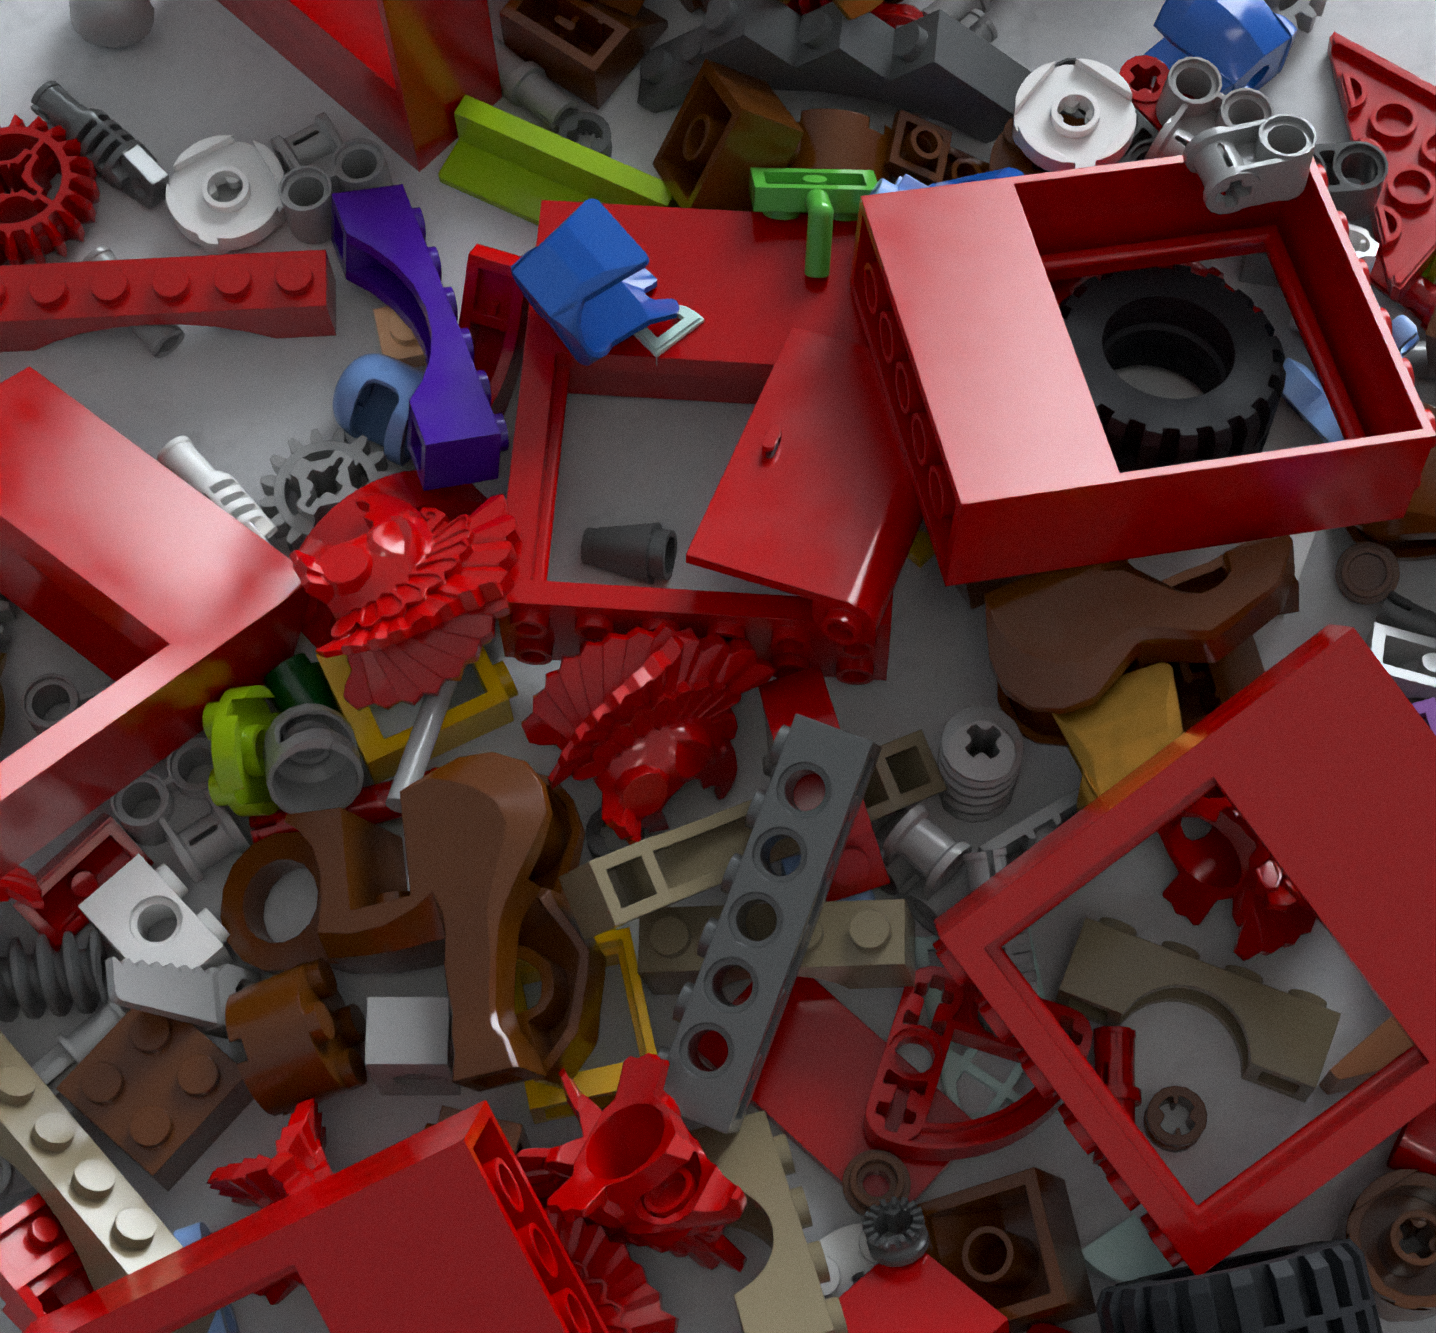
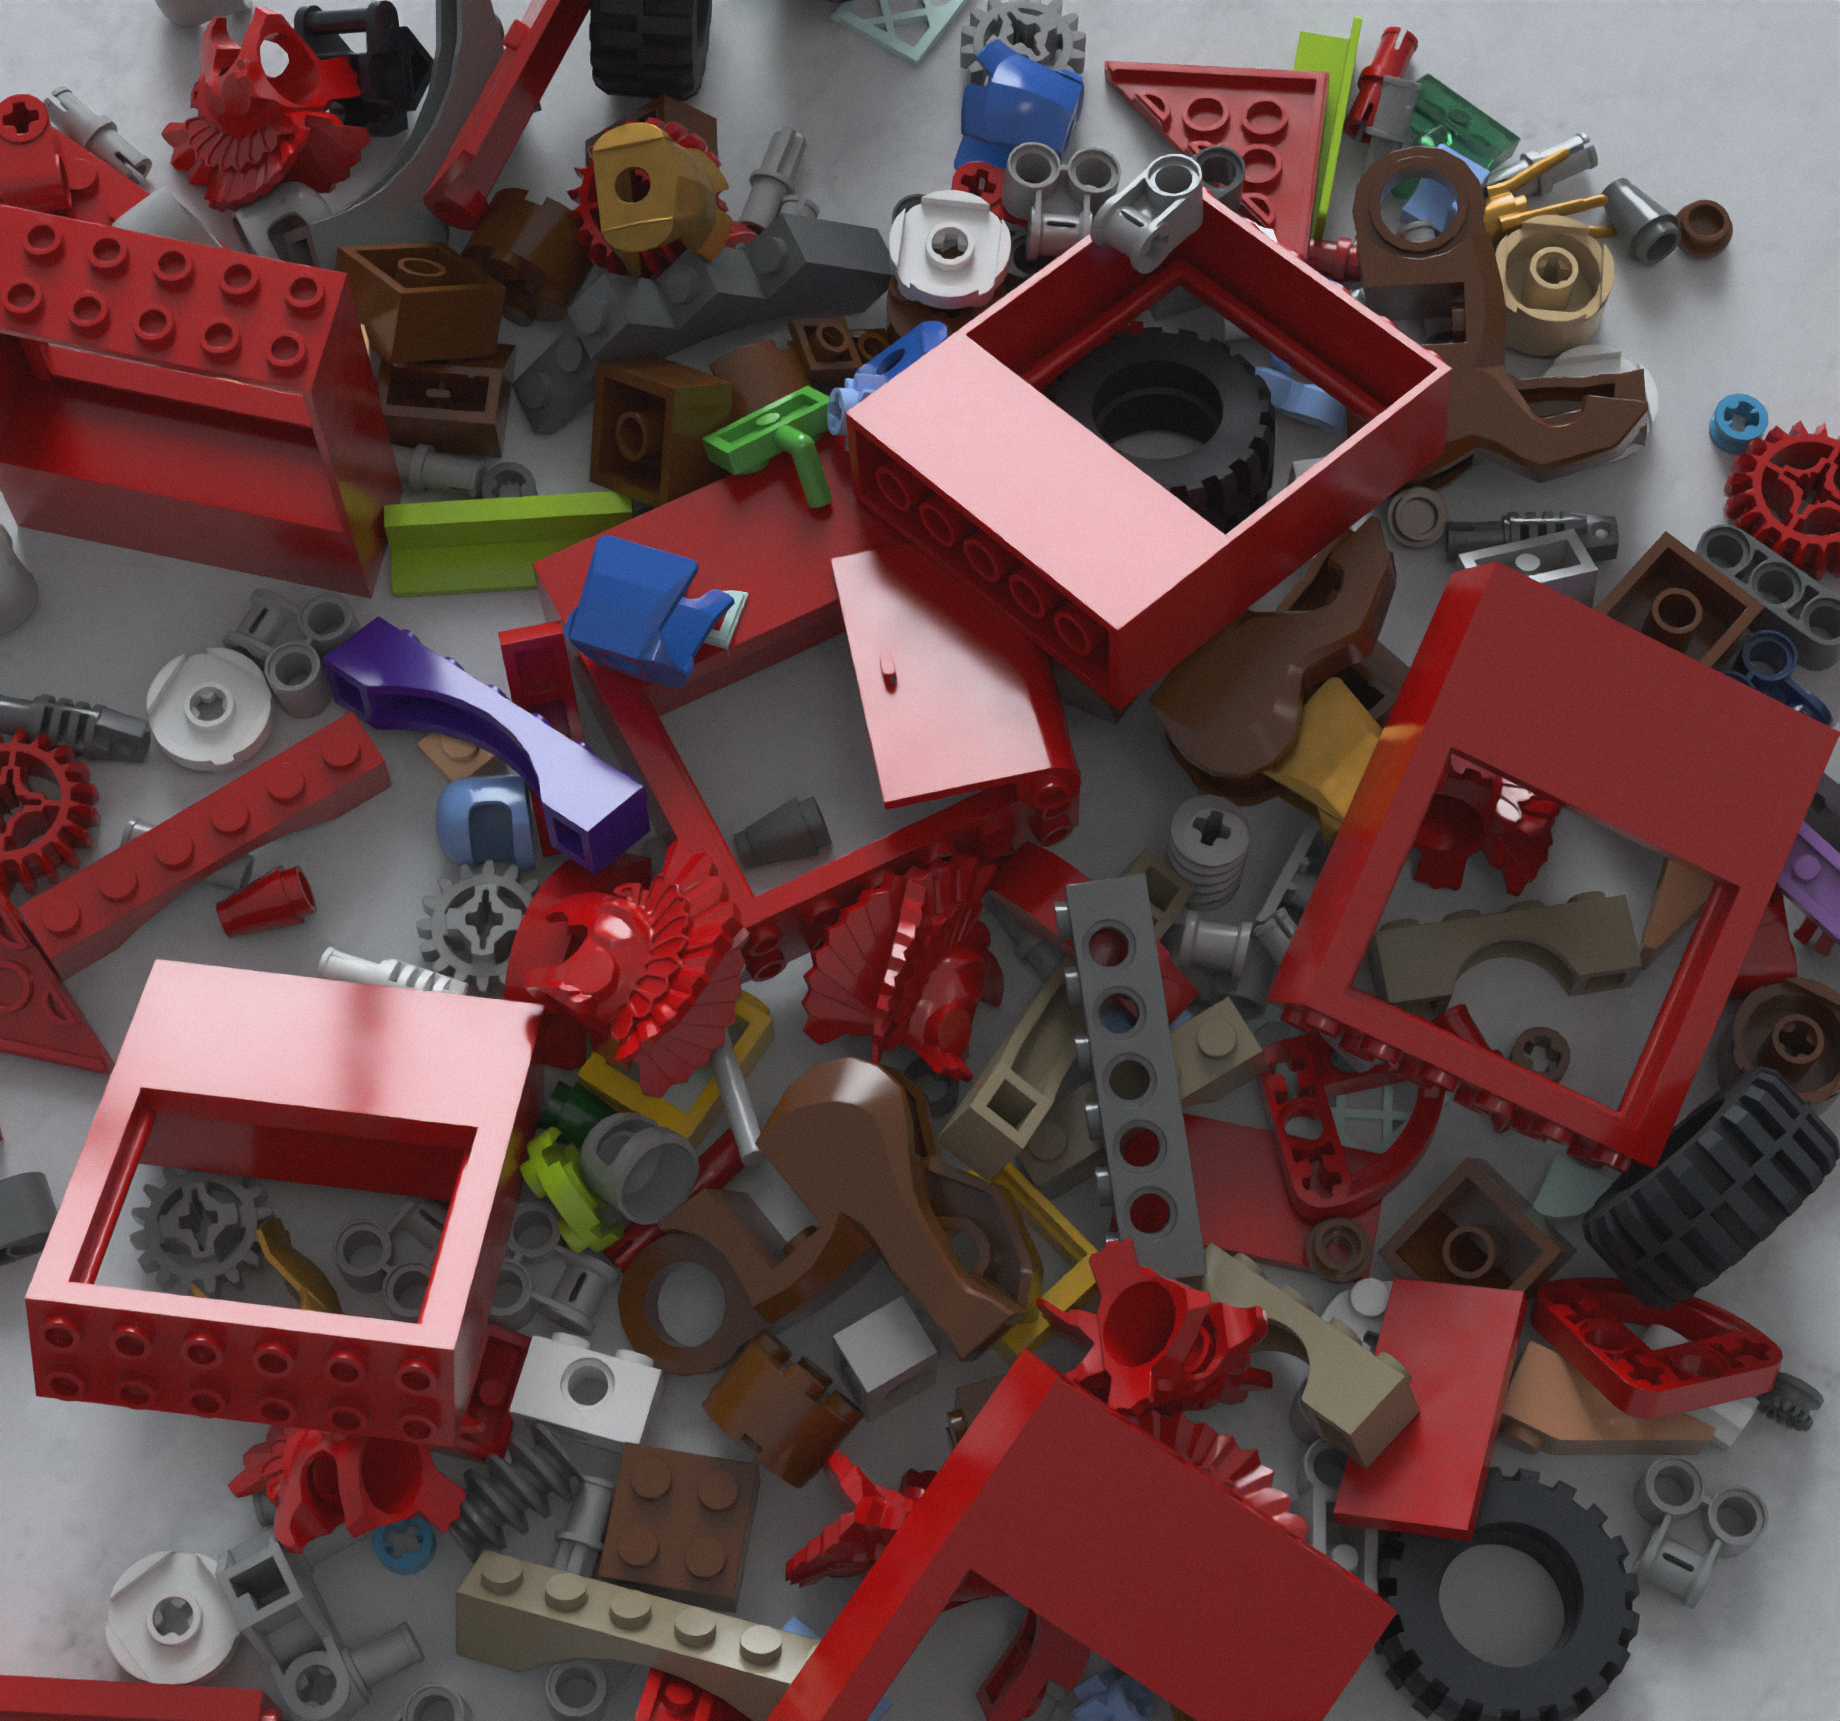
camera: 35 degrees left, 0 degrees up
(171, 376) = (268, 903): none -> red cone
(179, 992) = (664, 1427): light grey piece -> none
(895, 1216) = (1373, 1268): dark grey bush -> none

